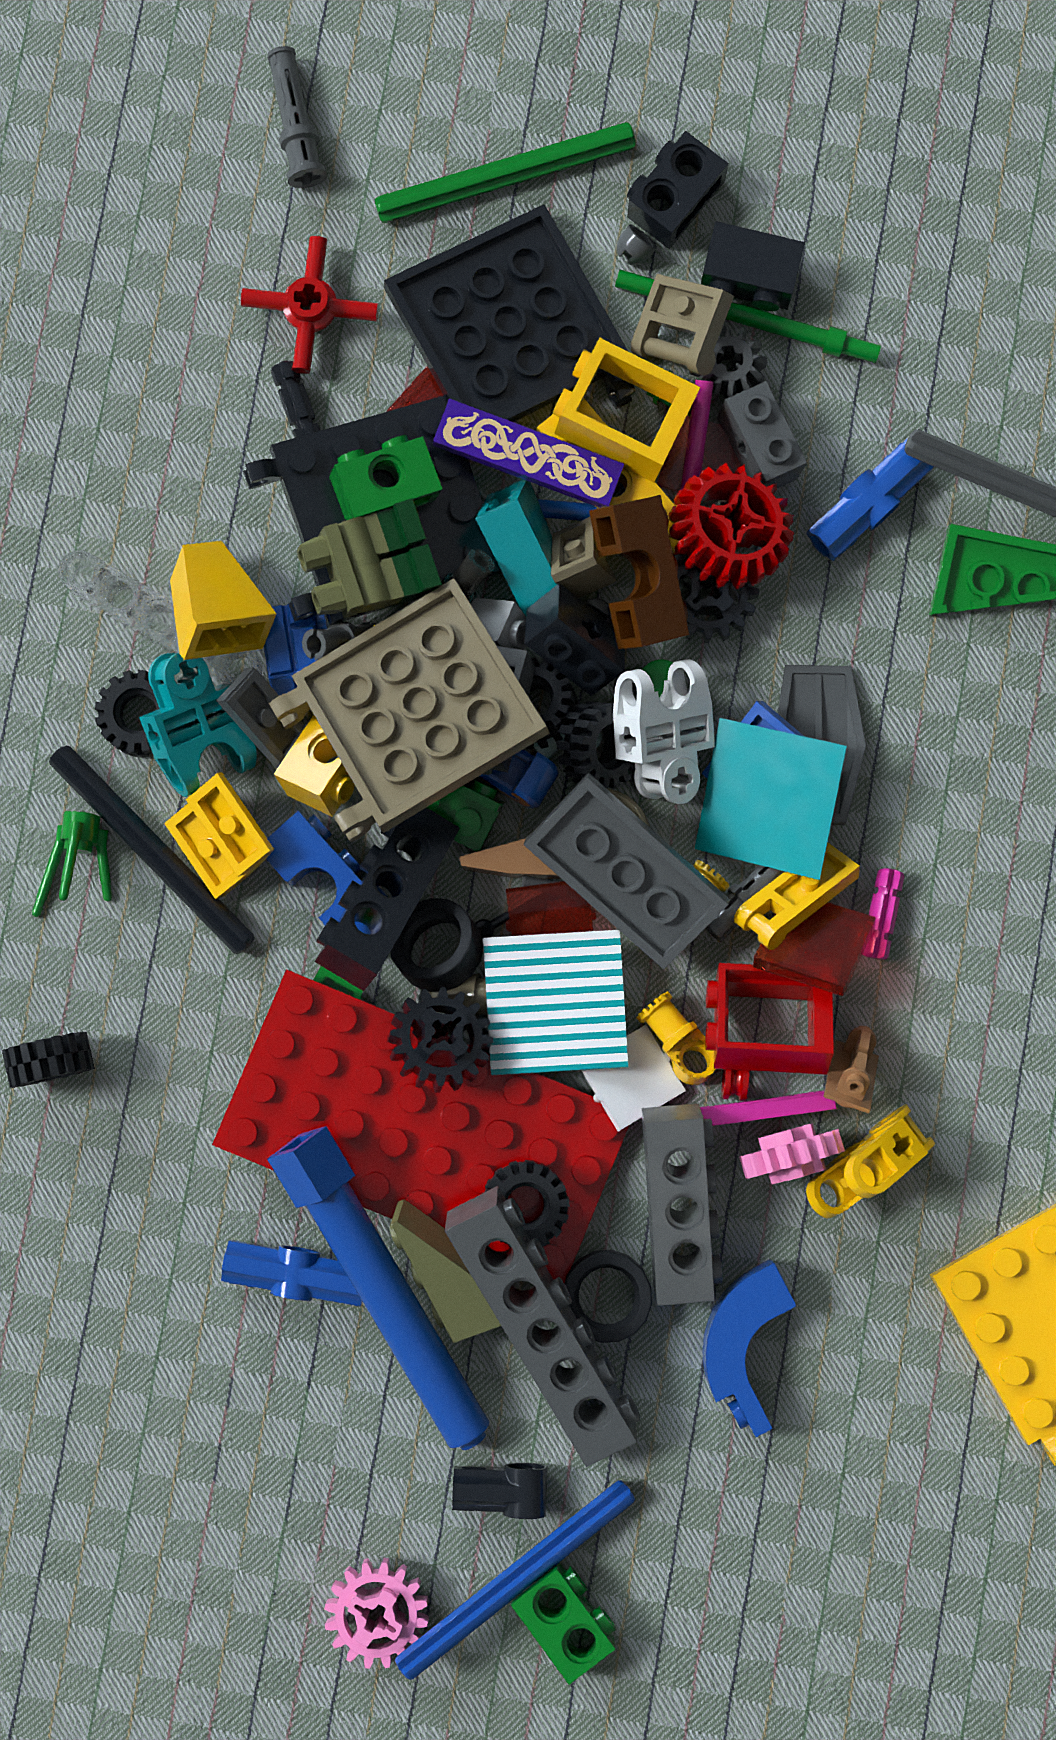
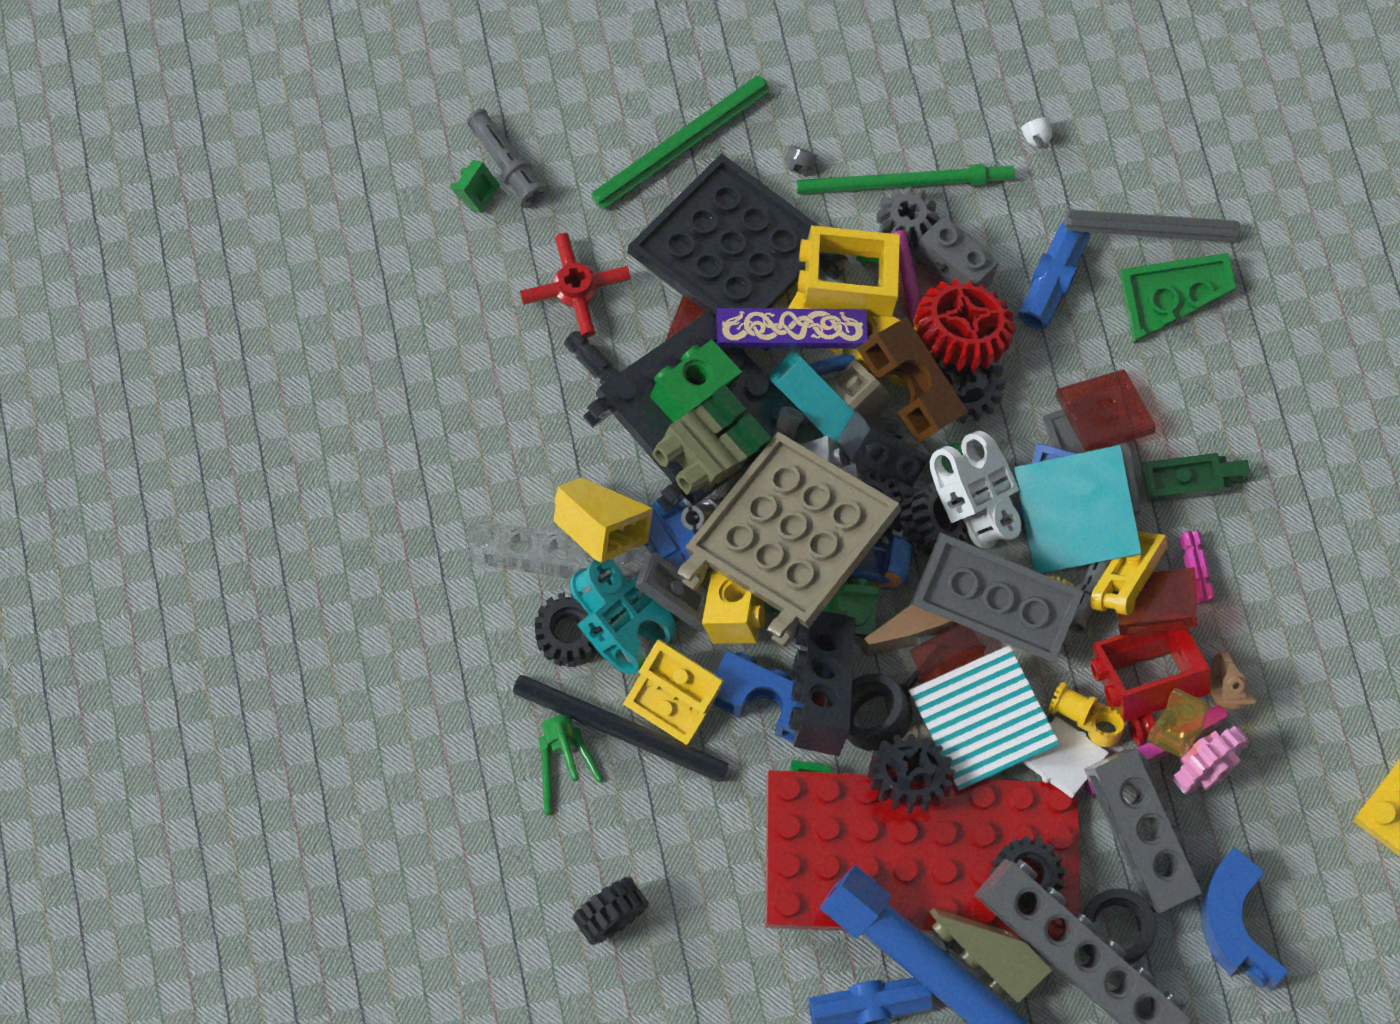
camera: 30 degrees left, 15 degrees down
(245, 140) = (475, 186): none -> green tile
(683, 193) = (816, 109): black brick -> none
(685, 308) = (863, 186): dark tan plate -> none
(753, 265) = (895, 142): black brick -> none
(769, 1102) = (1179, 723): none -> clear yellow bracket
(857, 688) = (1105, 411): none -> clear red tile
(871, 1163) = (1271, 746): yellow piece -> none
(924, 804) = (1192, 476): none -> dark green hinge
(928, 314) = (1037, 130): none -> white hinge

